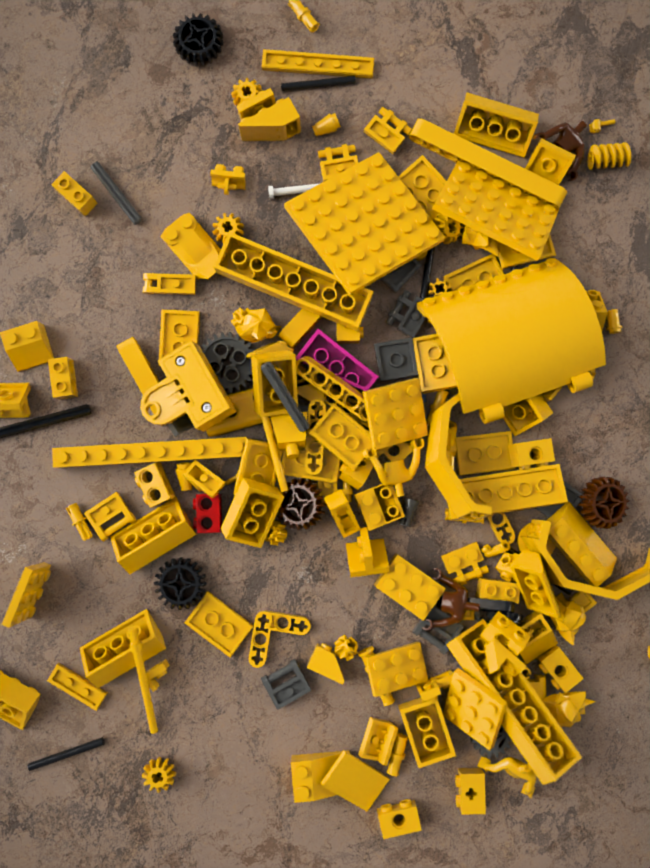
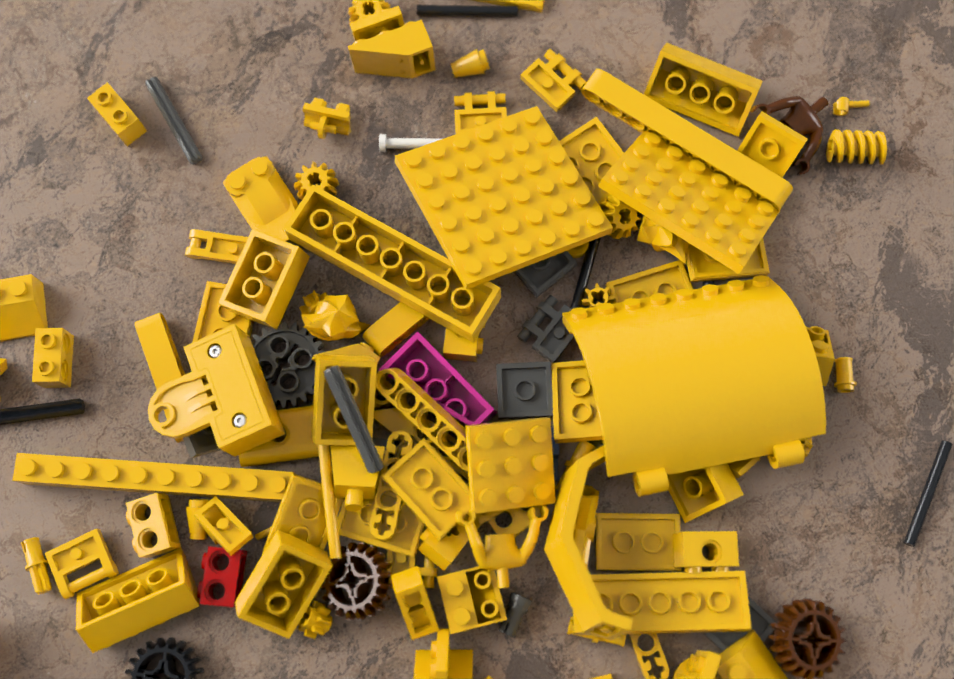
camera: 15 degrees right, 10 degrees down
(204, 304) = (264, 279): none -> yellow brick

